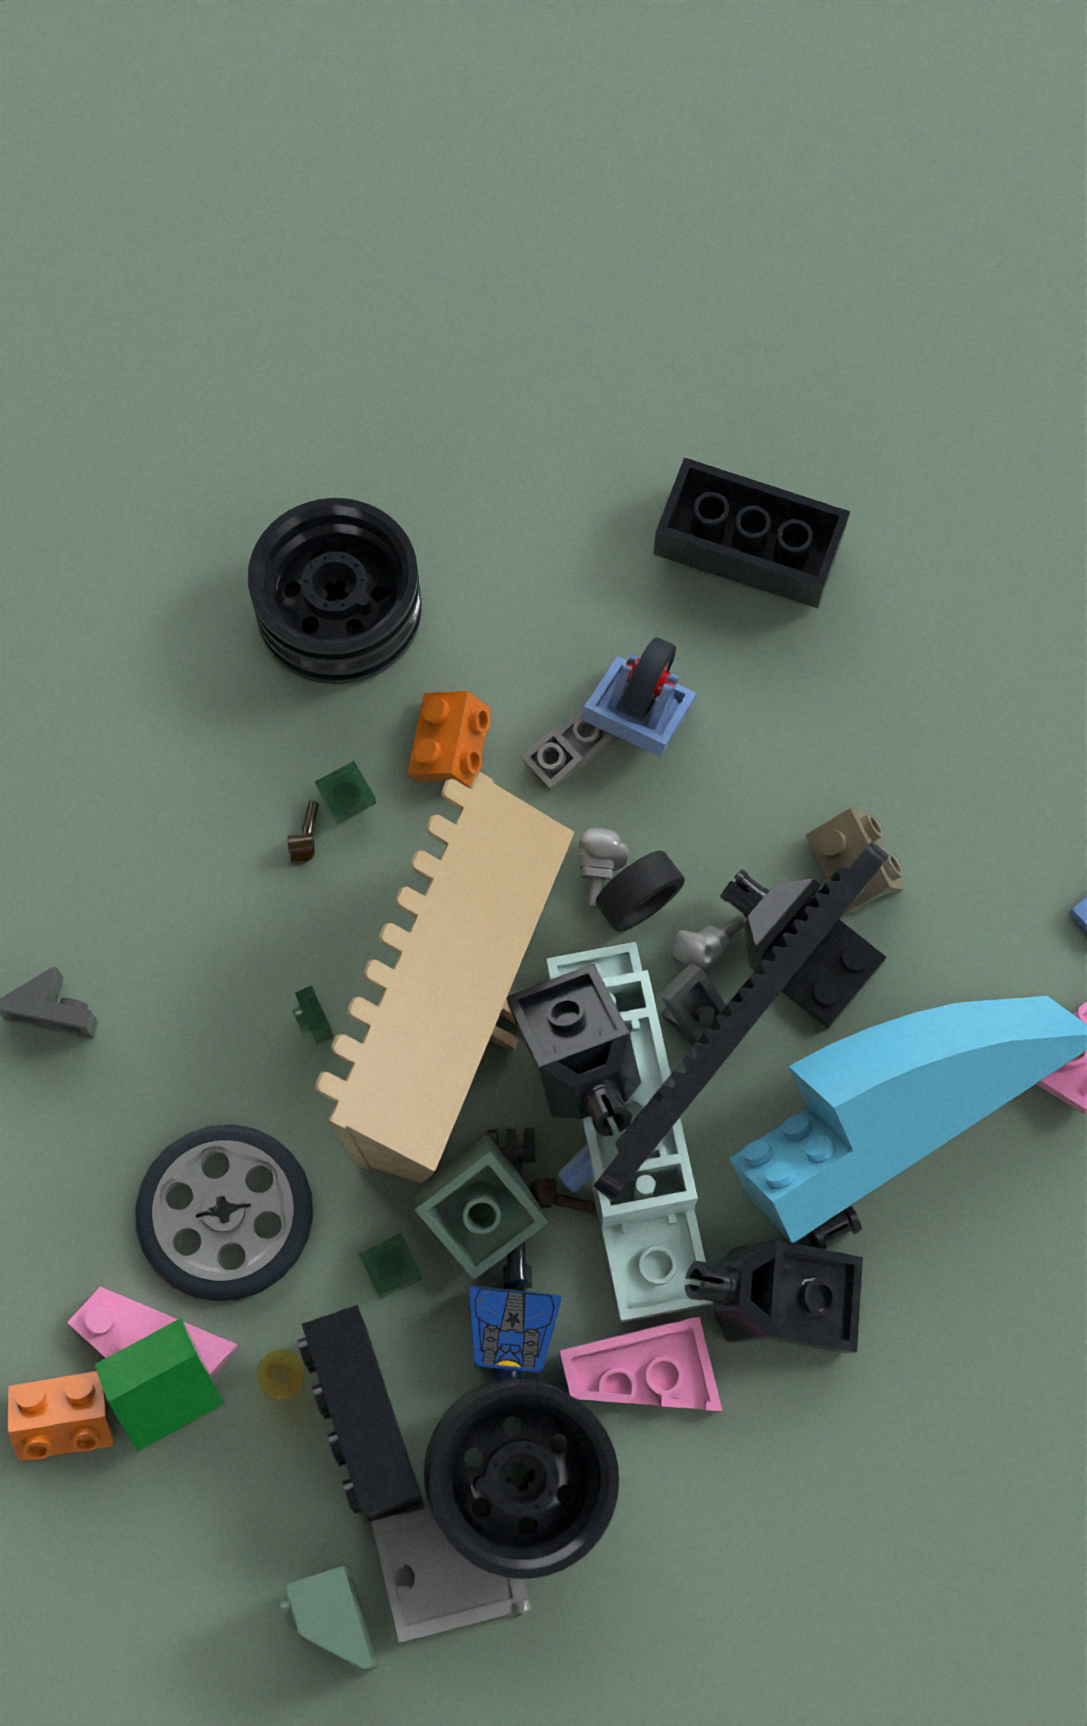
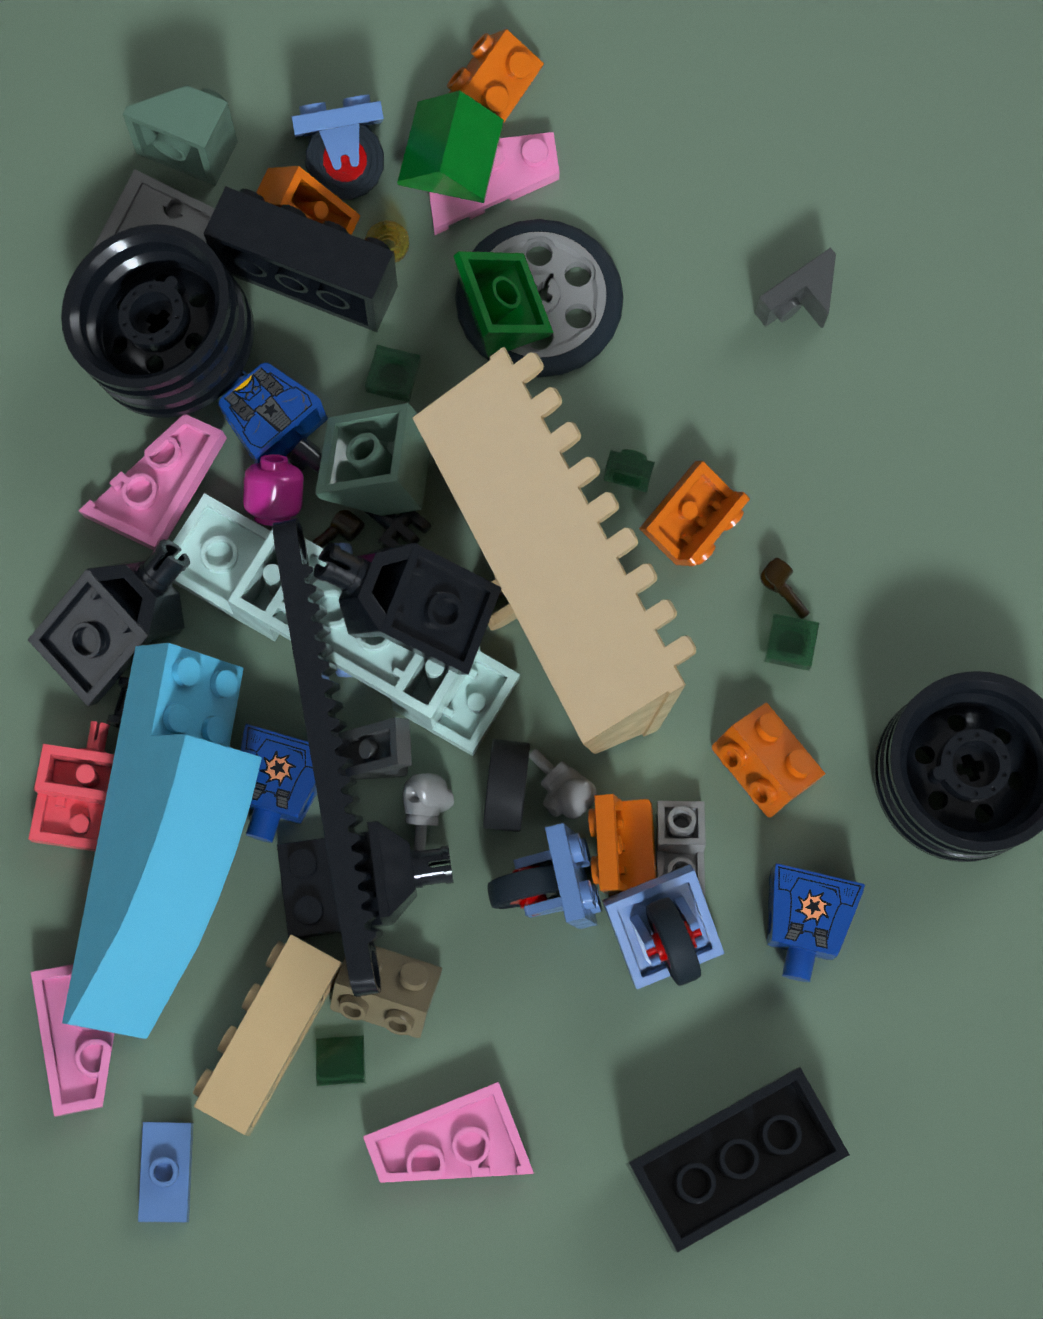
camera: 130 degrees right, 5 degrees up
(226, 1483) = (342, 148): none -> plate
(258, 1223) = (502, 299): none -> green slope
(307, 935) = (694, 516): none -> orange bracket
(311, 1465) = (299, 189): none -> orange slope
(539, 620) = (809, 916): none -> torso
(572, 1265) = (273, 490): none -> dark pink head
(595, 786) = (623, 843): none -> orange bracket
(681, 802) = (551, 881): none -> medium blue plate
(764, 1062) = (283, 783): none -> torso
(912, 728) = (451, 1142): none -> bright pink wing
(931, 1200) = (72, 792): none -> coral plate
(934, 846) = (340, 1061): none -> clear green slope
(965, 908) = (268, 1036): none -> tan brick

